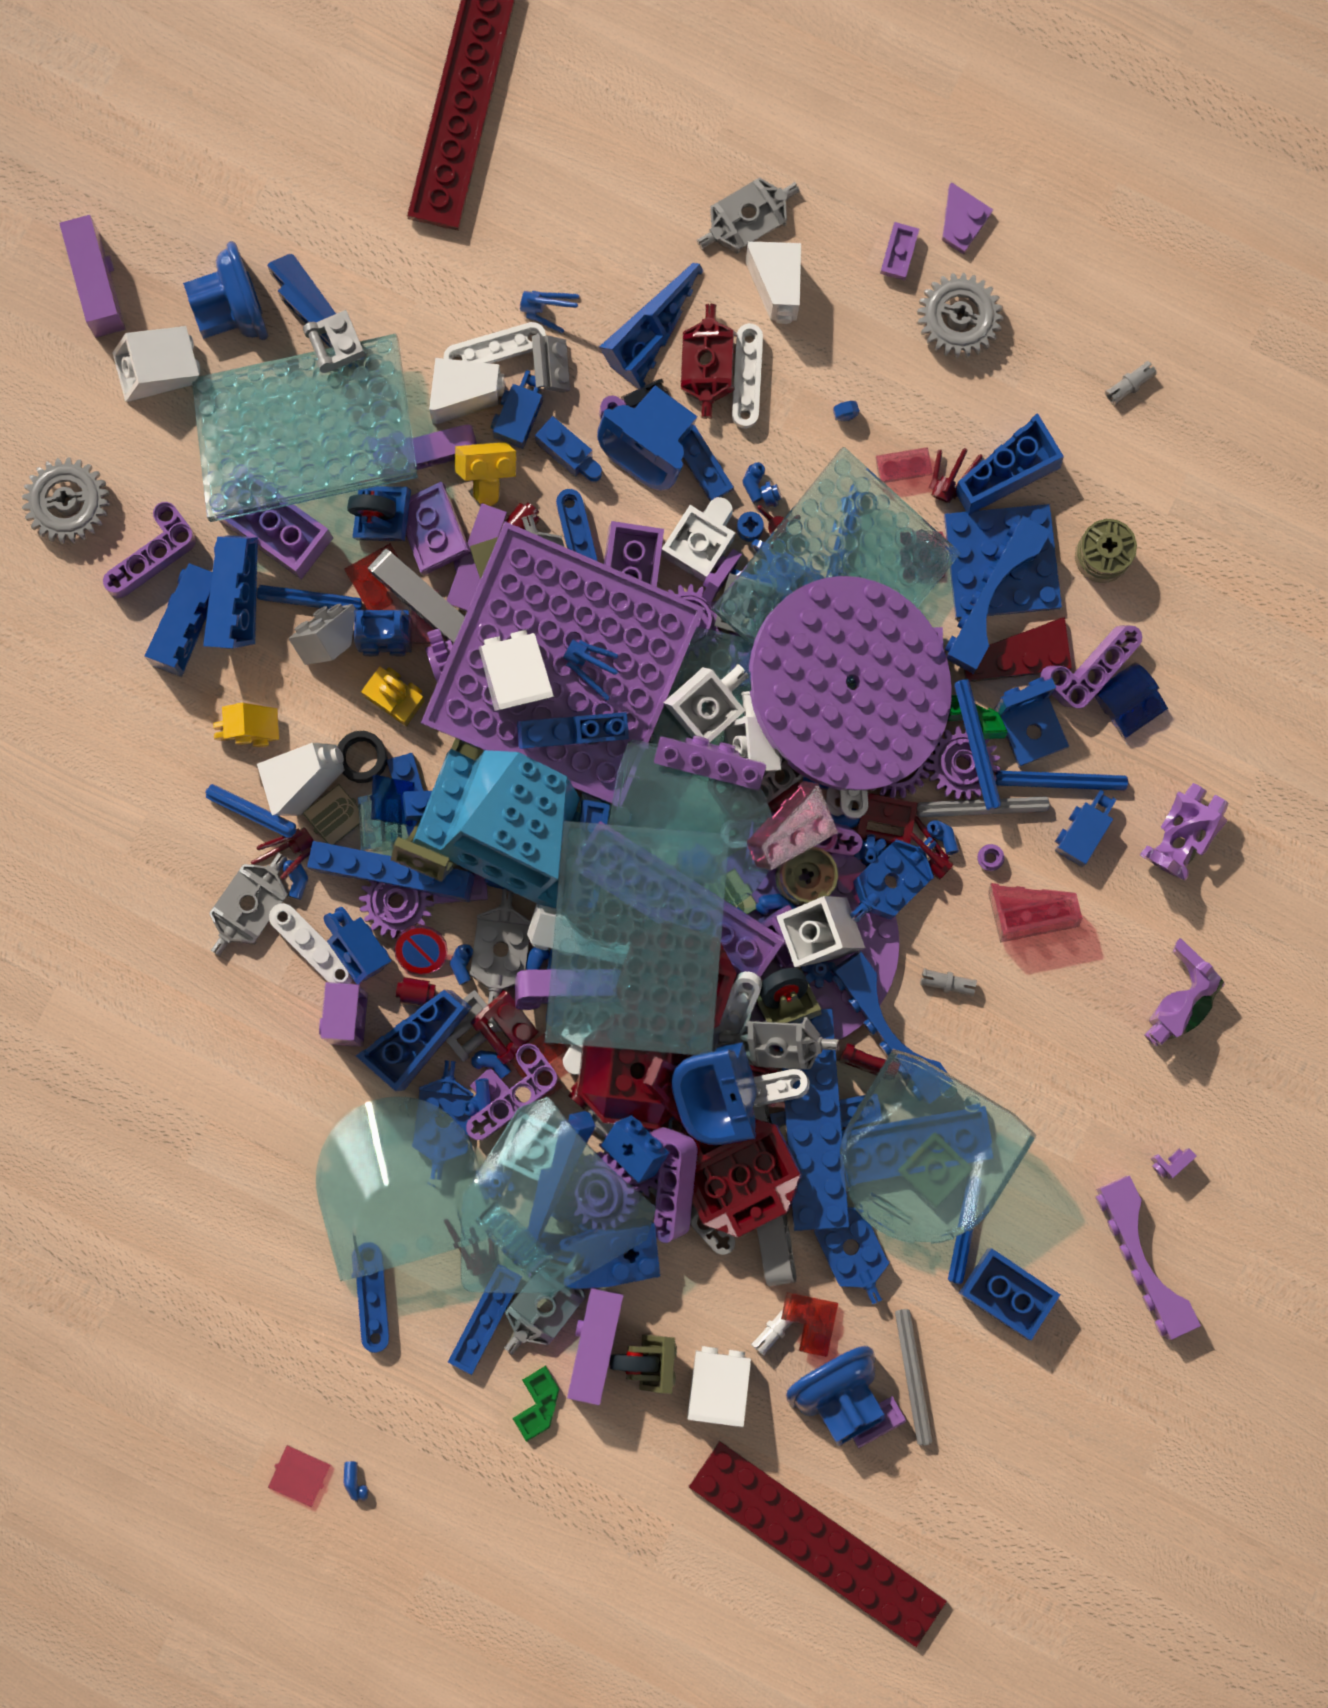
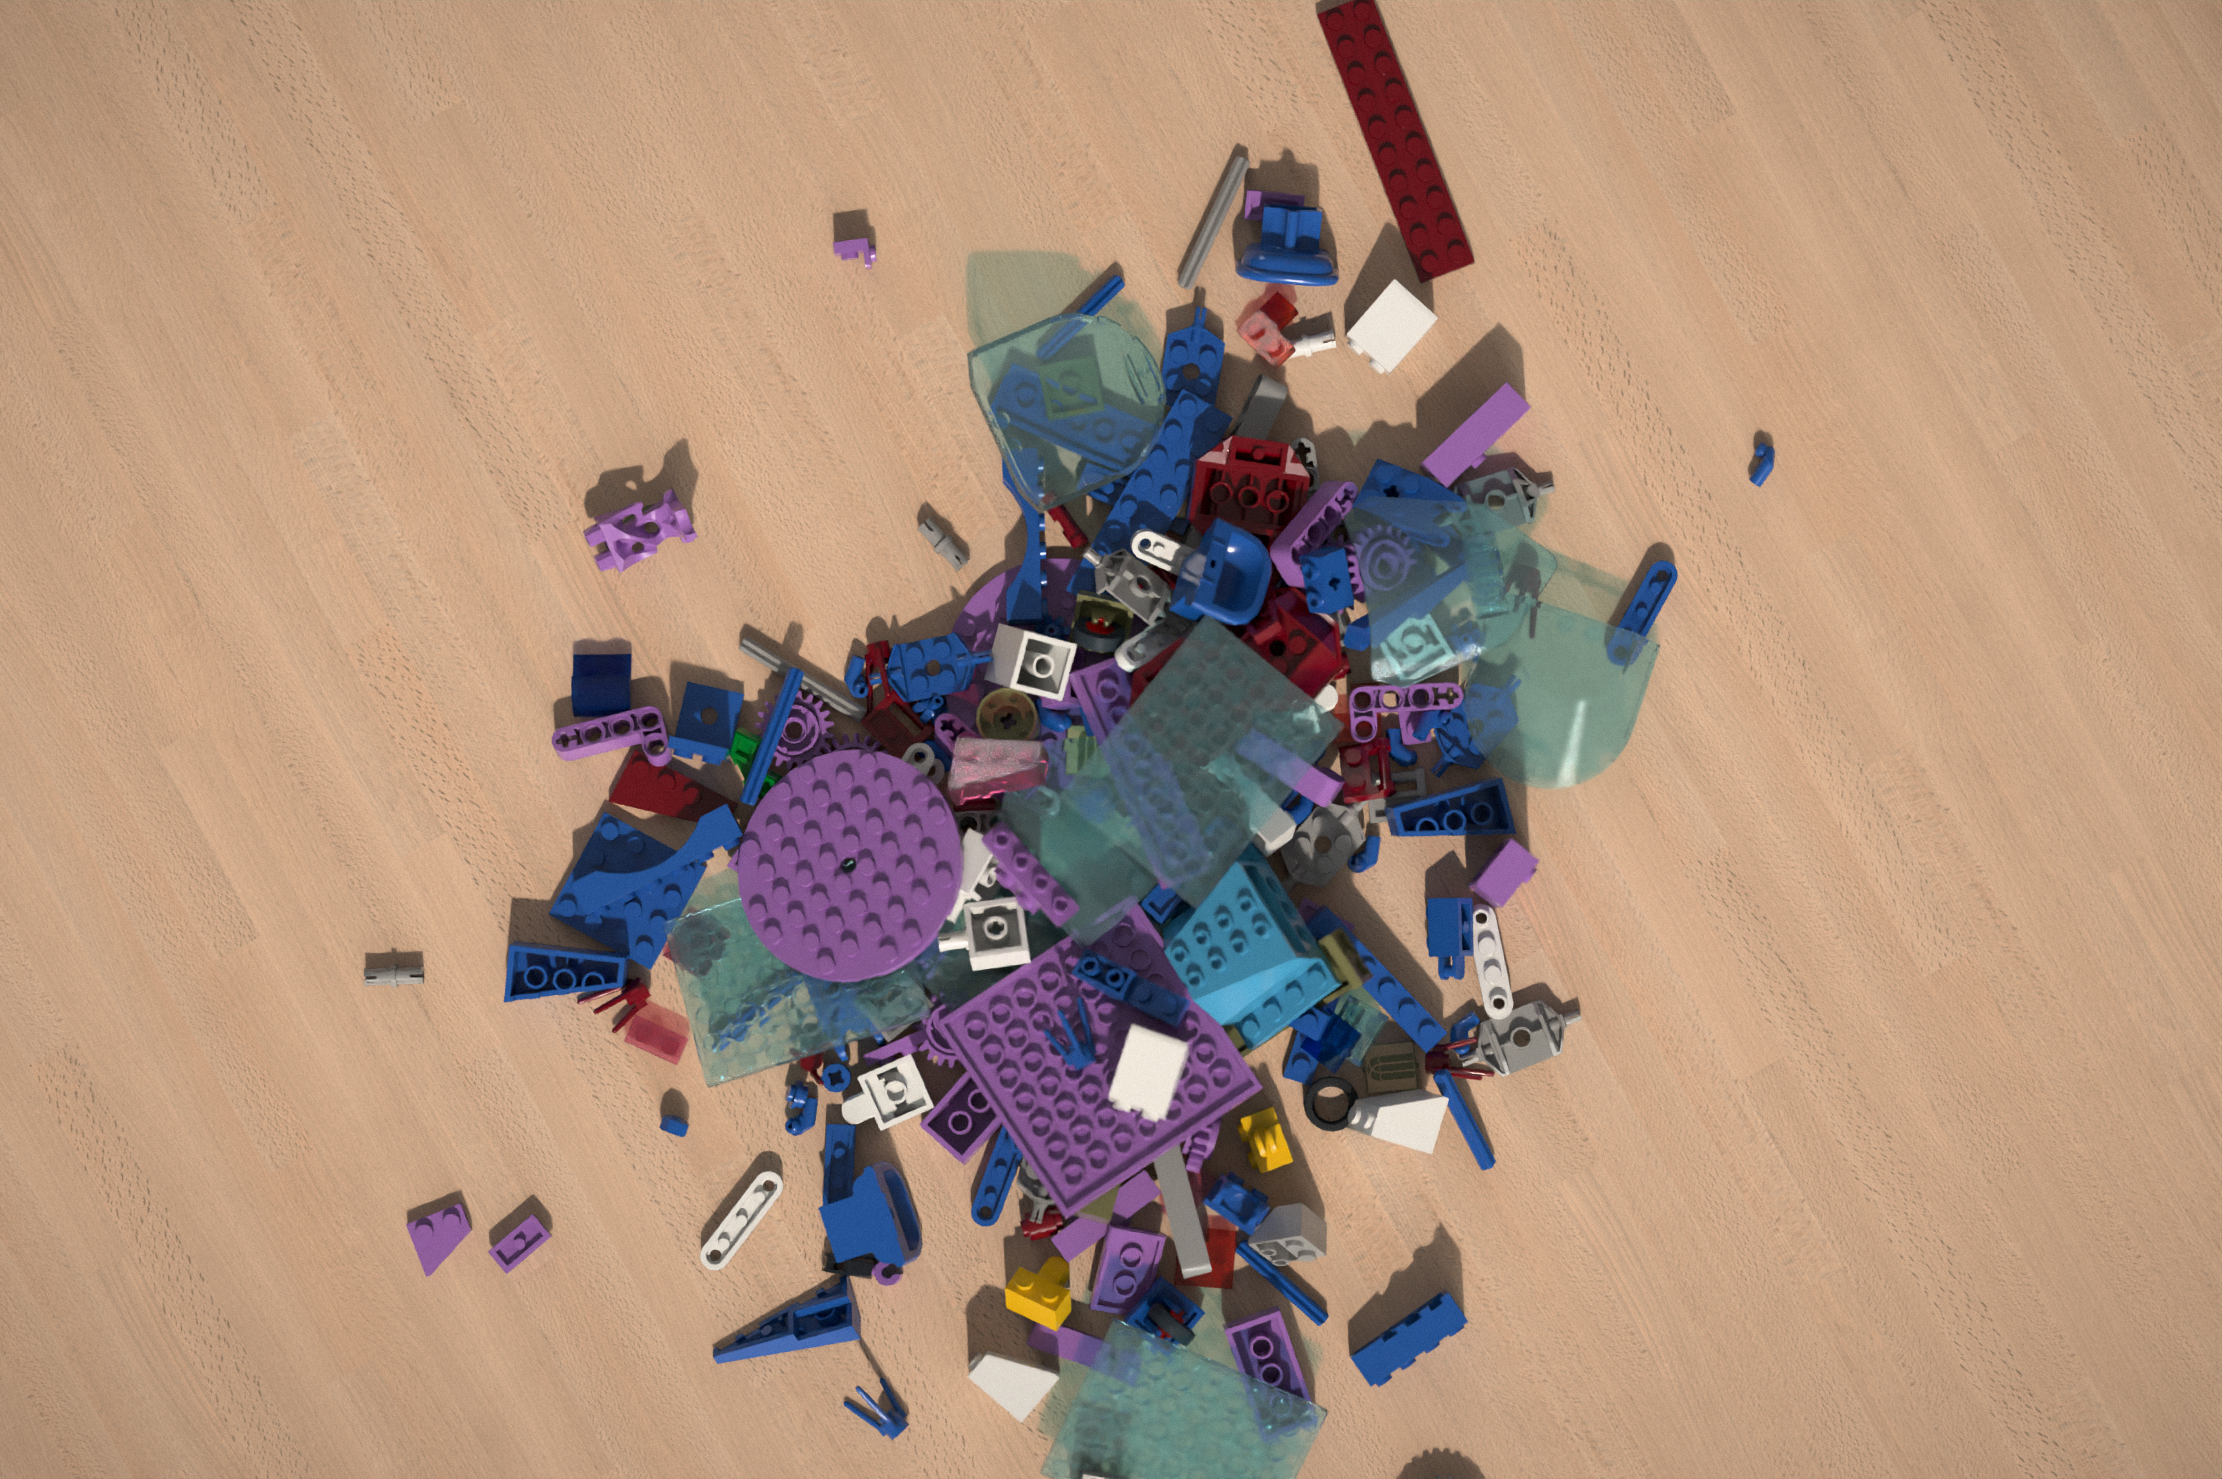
camera: 140 degrees left, 5 degrees up
(146, 553) = (1402, 1423): medium lavender beam -> none
(233, 593) = (1350, 1328): blue wedge -> none
(248, 724) = (1414, 1198): yellow brick -> none
(299, 1475) = (1807, 502): clear pink piece -> none
(394, 918) = (1401, 936): medium lavender gear -> none
(415, 991) = (1424, 856): dark red brick -> none
(420, 949) = (1394, 891): piece -> none
(479, 1330) = (1569, 518): blue plate -> none
(497, 345) = (955, 1404): white plate -> none
(518, 412) = (974, 1328): blue brick -> none
(545, 1394) = (1546, 426): green tile -> none
(551, 363) = (915, 1353): light grey plate -> none
(568, 450) = (954, 1260): blue brick -> none
(649, 1363) = (1438, 390): olive plate -> none
(714, 379) = (774, 1235): dark red plate -> none
(735, 230) = (659, 1370): light grey plate -> none
(776, 275) = (653, 1290): white slope -> none
(936, 305) = (524, 1167): light grey gear -> none
(996, 851) = (818, 629): medium lavender plate -> none
(1009, 1294) = (1081, 236): blue brick -> none
(1032, 912) = (826, 554): clear pink wedge -> none
(1061, 780) = (715, 655): blue axle -> none
(1085, 831) = (725, 596): blue brick -> none
(1095, 560) = (546, 828): olive wheel -> none
(1122, 1205) = (926, 245): medium lavender arch -> none
(1186, 1008) = (752, 375): medium lavender hips -> none

